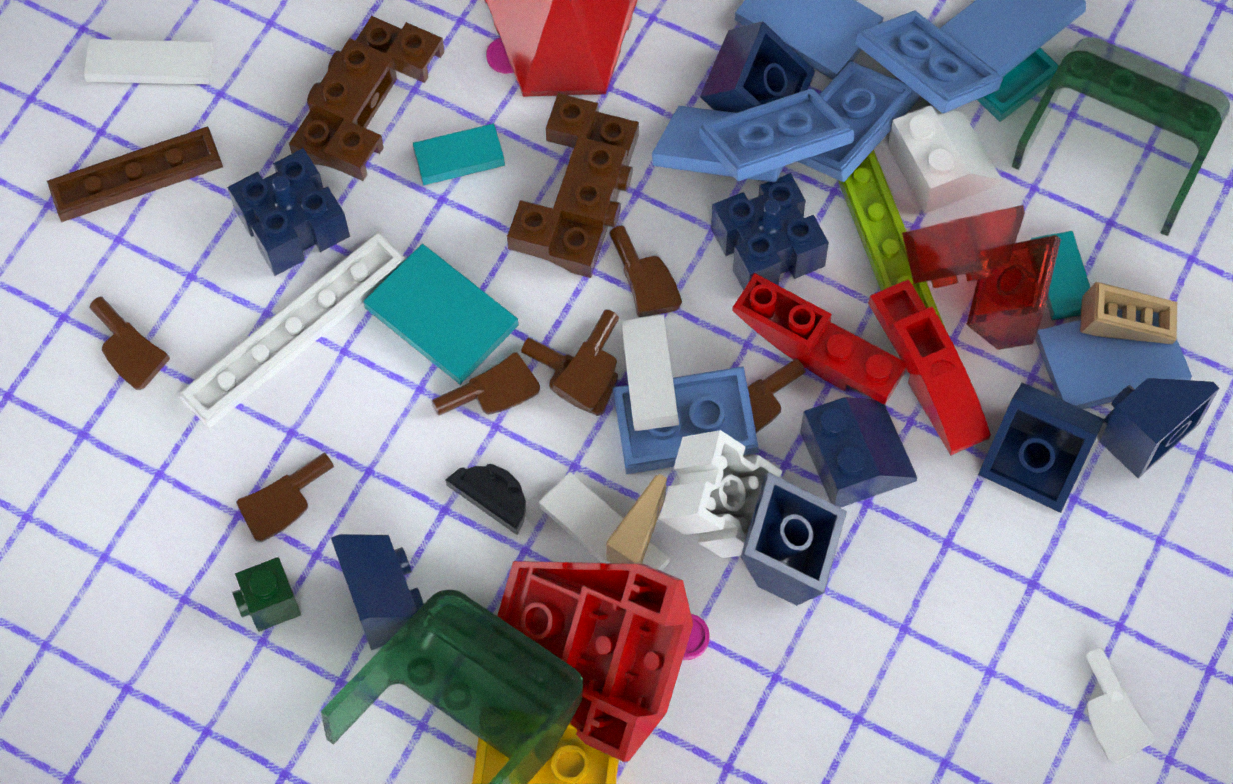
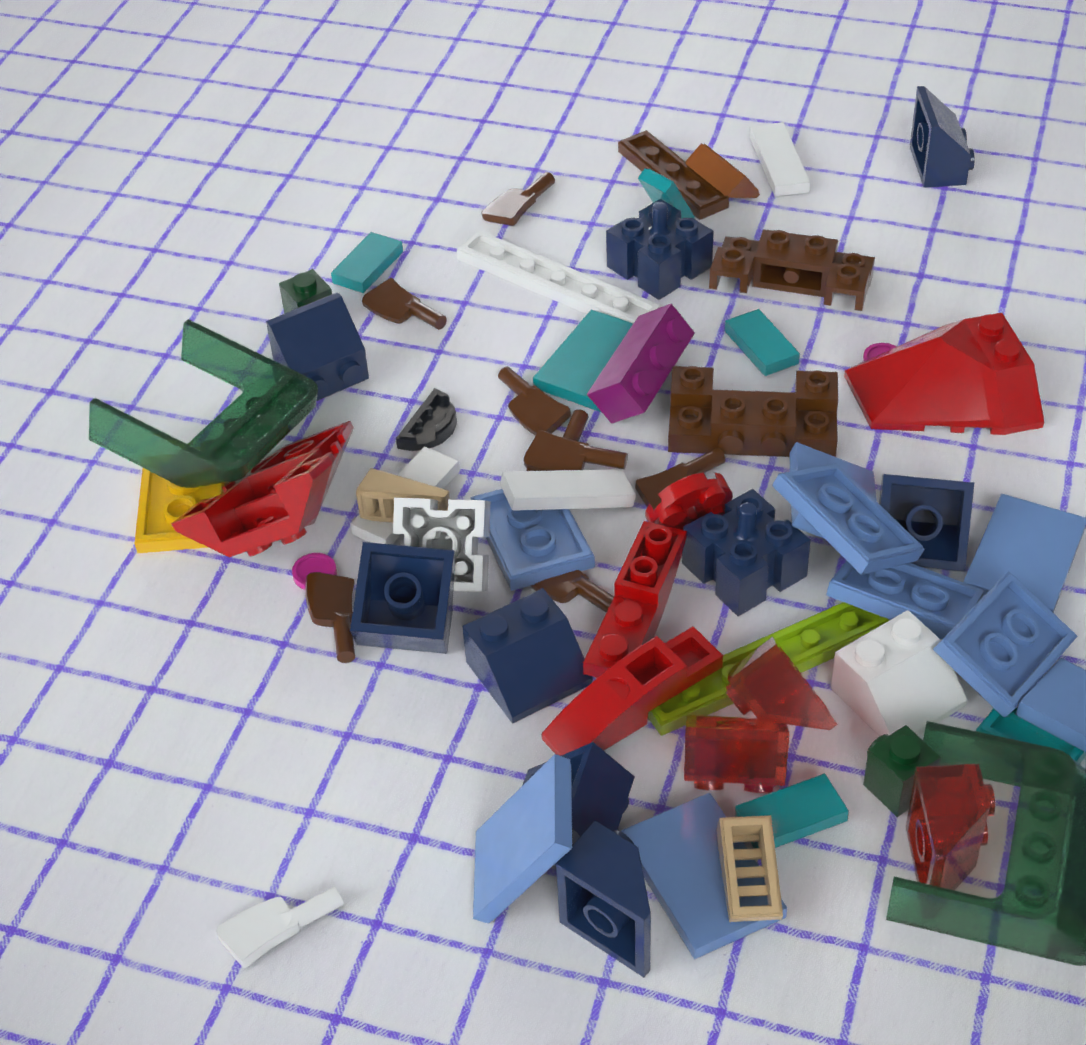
camera: 80 degrees right, 20 degrees down
(167, 124) = (721, 173): none -> dark orange slope
(191, 525) = (367, 262): none -> teal tile
(219, 181) = (663, 188): none -> teal tile
(488, 264) = (641, 364): none -> magenta brick
(714, 265) = (690, 500): none -> red plate
(750, 622) = (331, 606): none -> reddish brown piece
(1045, 179) = (893, 766): none -> dark green brick
(1101, 475) = (523, 839): none -> medium blue tile
(1130, 162) = (948, 822): none -> clear red slope

